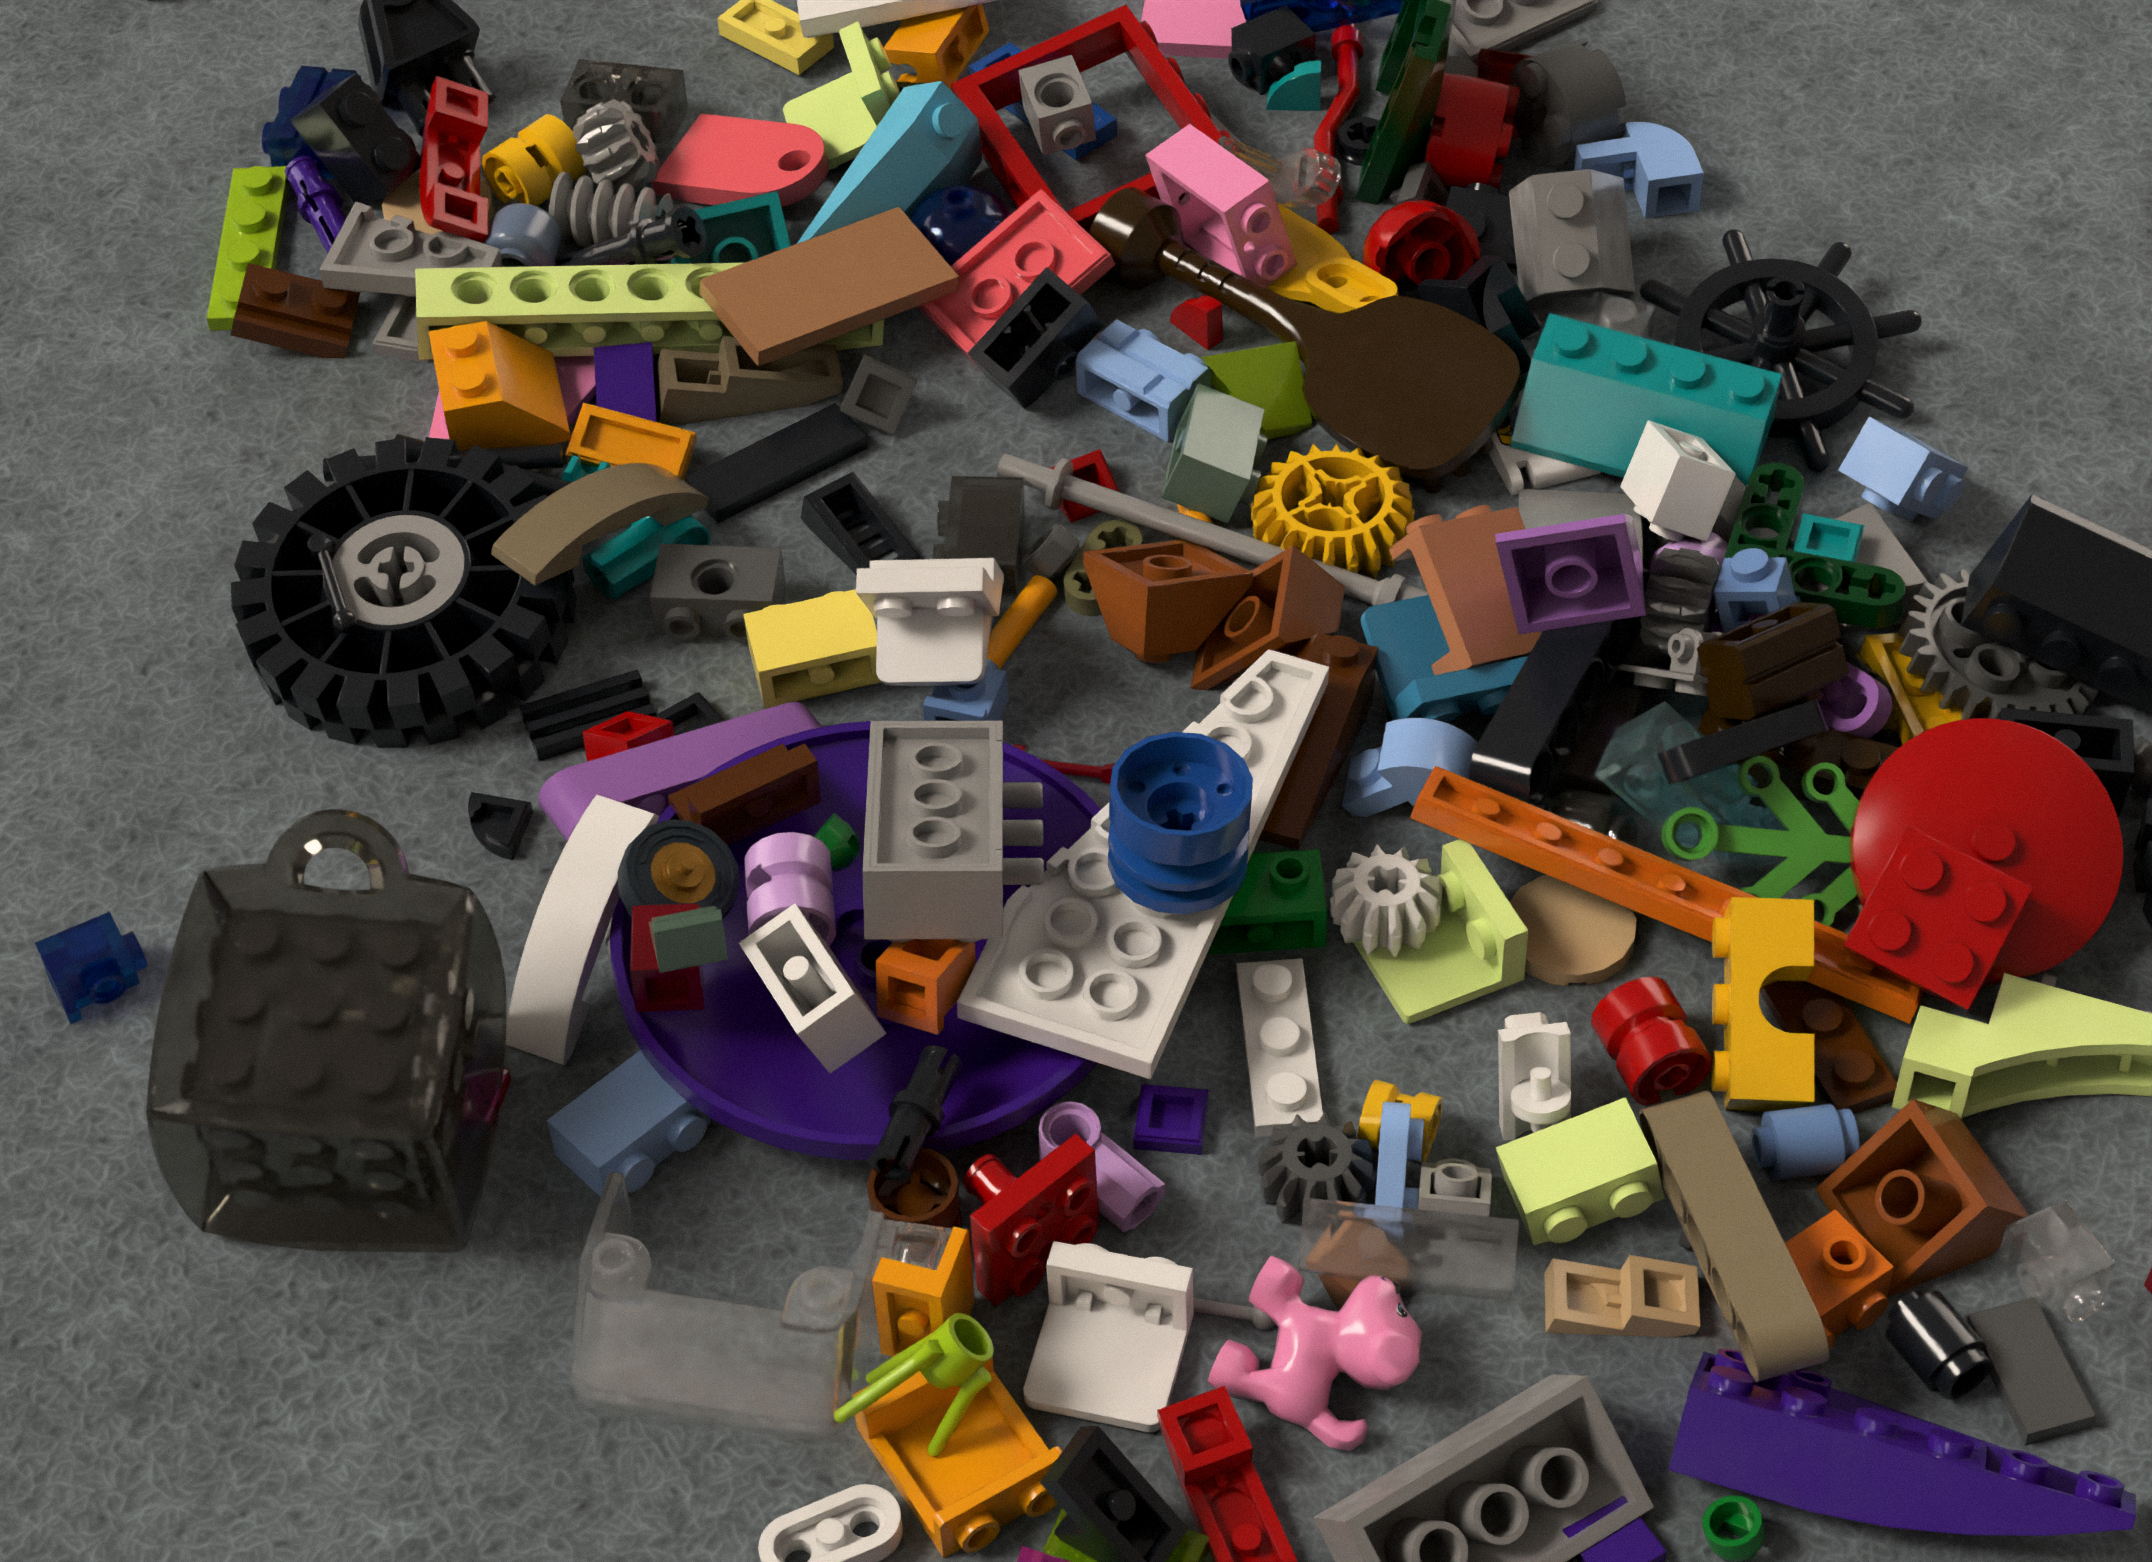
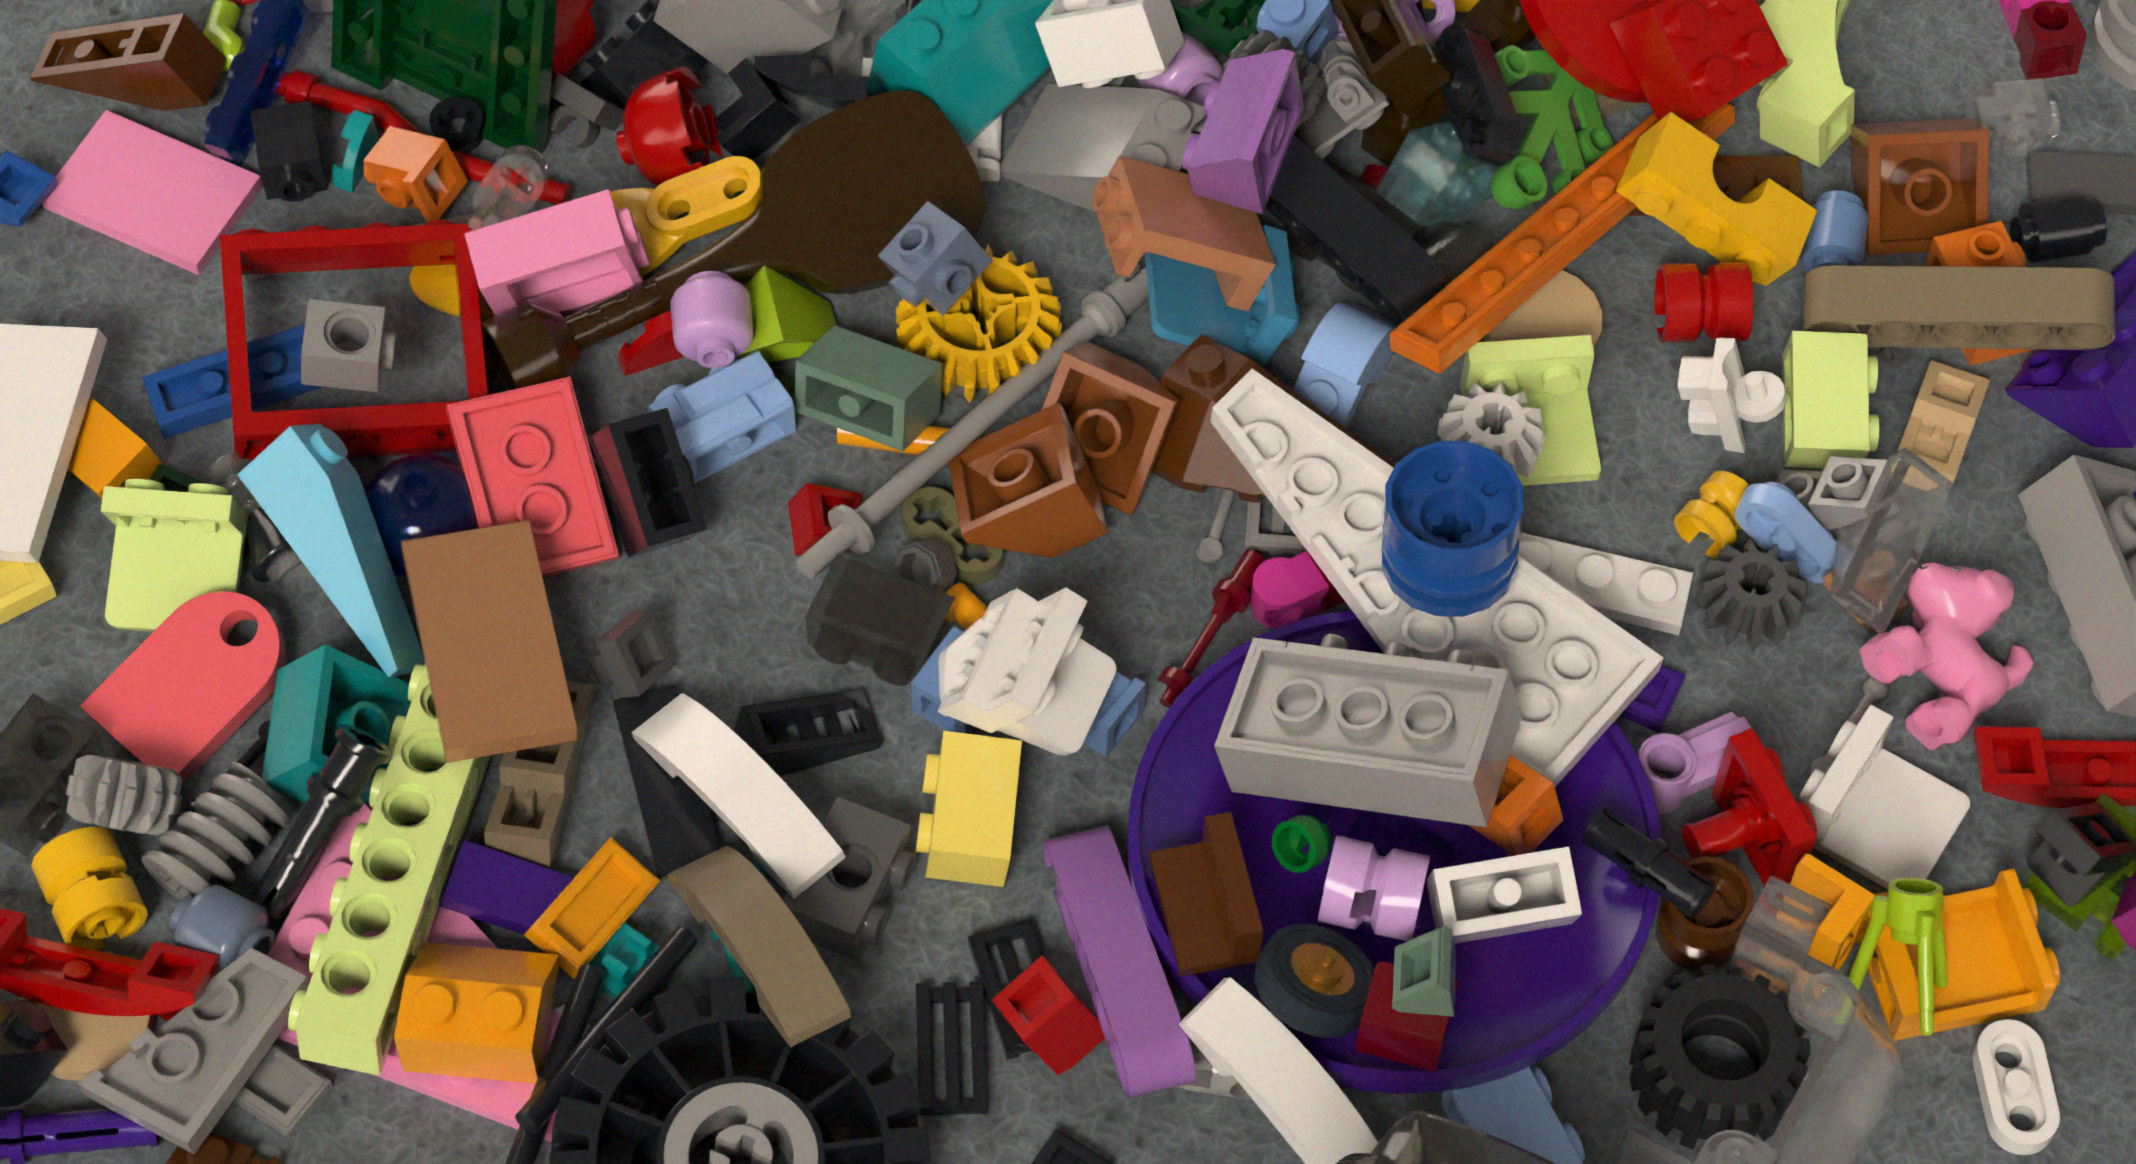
camera: 75 degrees left, 10 degrees up
(721, 508) = (741, 791): none -> white slope
(751, 1214) = (1725, 1008): none -> black tyre
(1216, 320) = (712, 319): none -> lavender head
(1286, 120) = (414, 172): none -> orange brick
(1340, 426) = (933, 259): none -> sand blue brick

